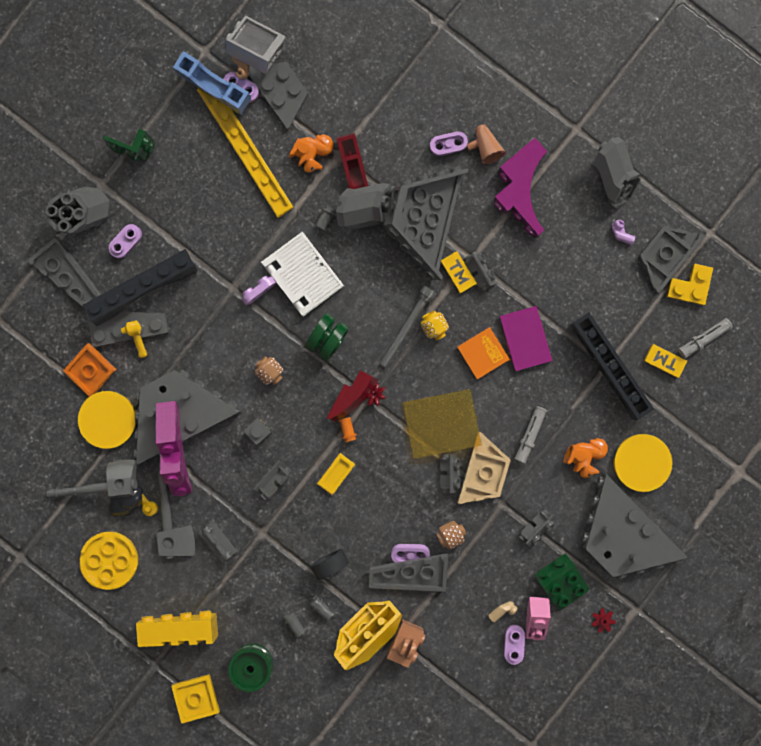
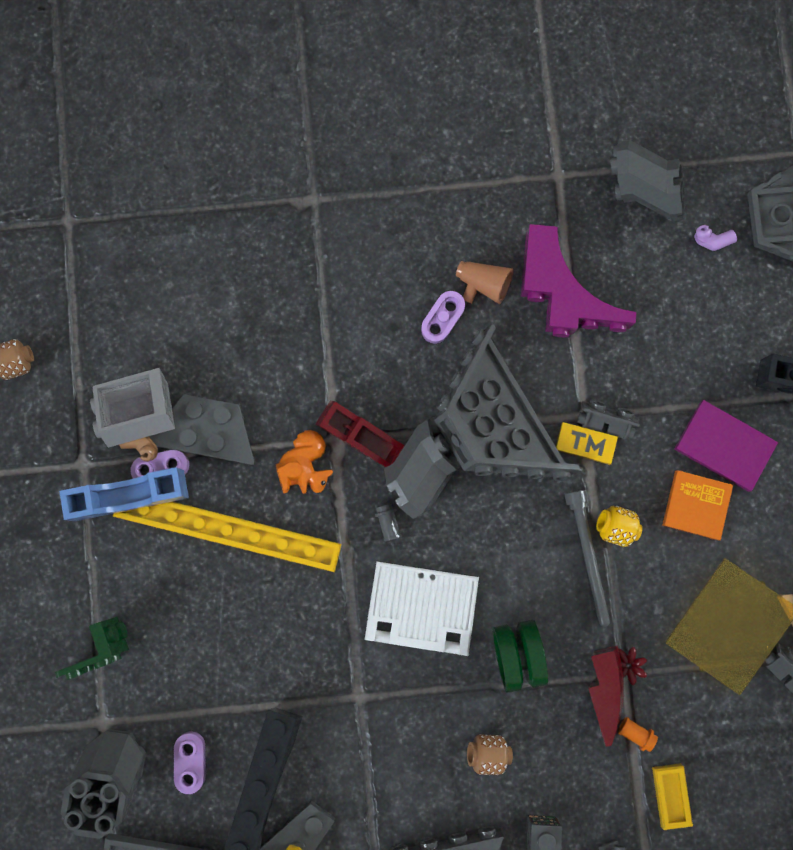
camera: 40 degrees left, 5 degrees down
(251, 295) = (392, 662): lavender plate -> none

